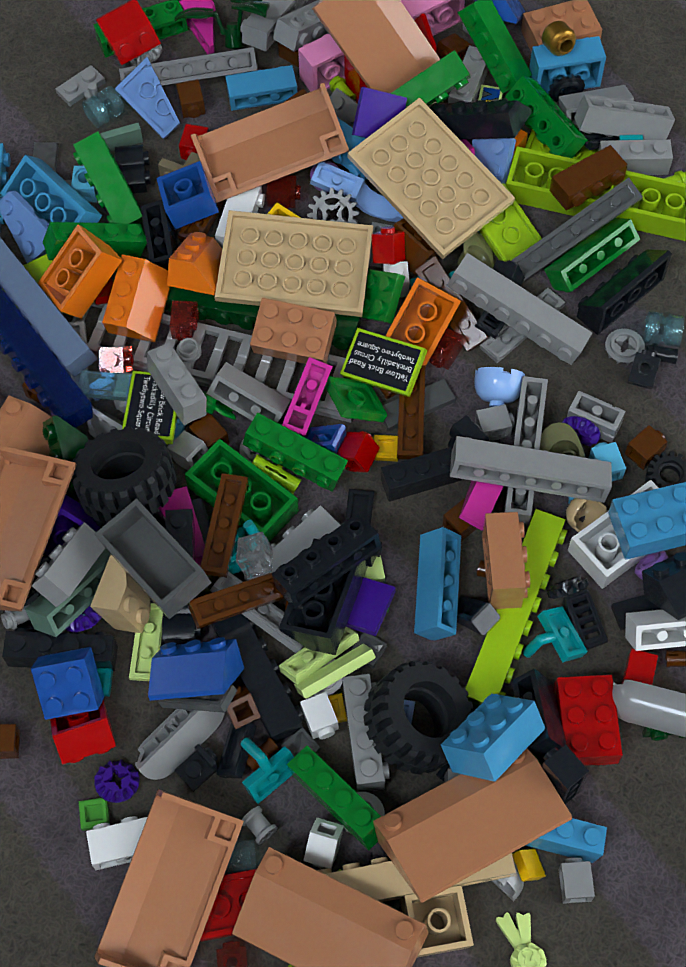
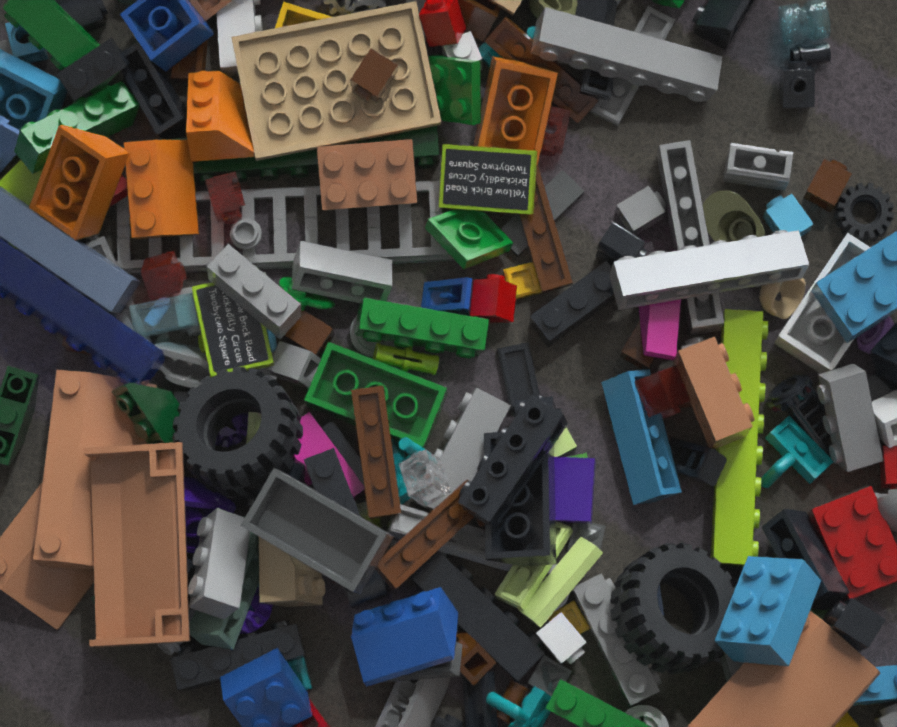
camera: 15 degrees left, 15 degrees up
(121, 204) = (93, 68): none -> black brick
(146, 645) = (335, 622): yellowish green tile -> none
(307, 396) = (411, 256): dark pink slope -> none
(322, 262) = (373, 76): none -> reddish brown brick
(465, 551) = (662, 392): none -> clear red brick
(497, 385) = (631, 162): light blue cylinder -> none
(585, 429) = (750, 189): dark purple gear -> none
(610, 618) = (849, 417): none -> light grey brick
(619, 337) = (753, 46): light grey gear -> none

